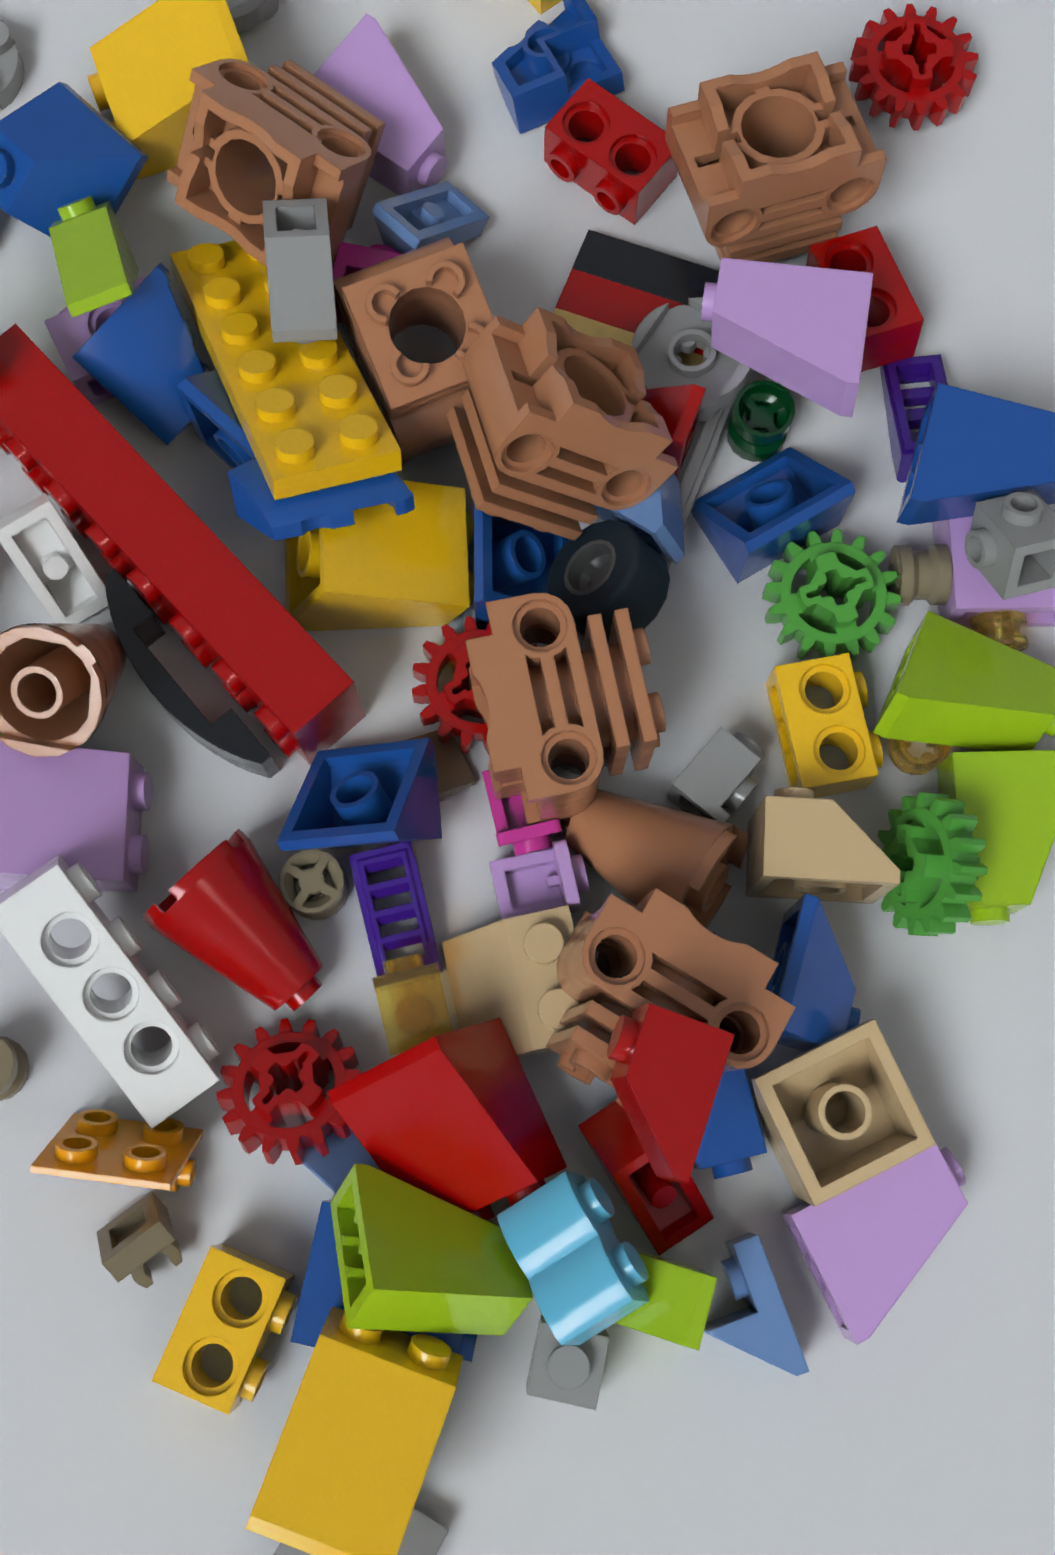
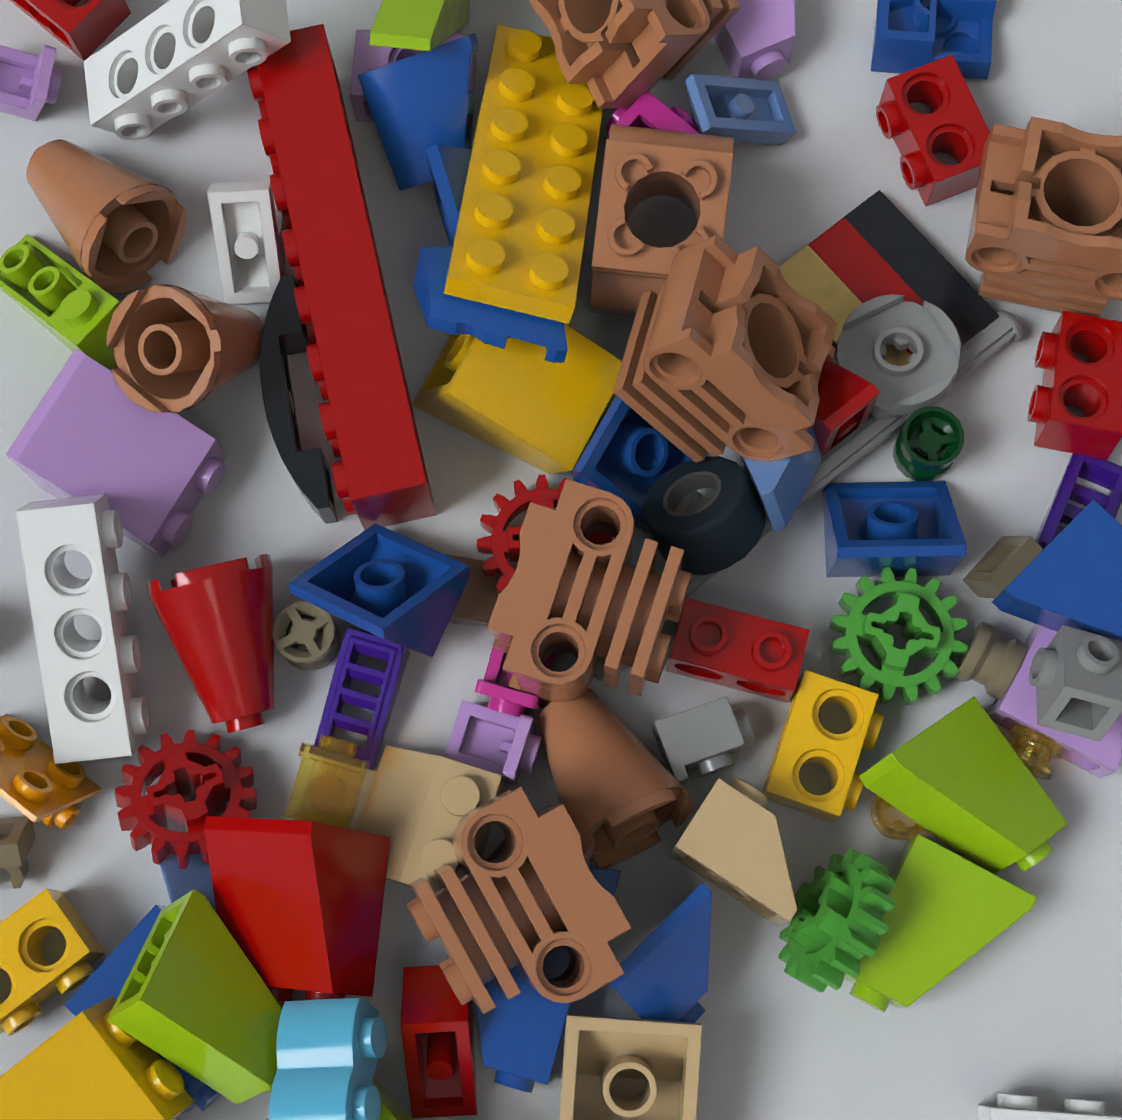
camera: 35 degrees right, 0 degrees up
(299, 270) = (584, 102): light grey slope -> none
(667, 1083) = (469, 971): red slope -> none
(712, 681) = (738, 650): none -> red brick
(793, 326) = (996, 377): lavender slope -> none
(882, 490) = (1002, 565): none -> dark tan tile

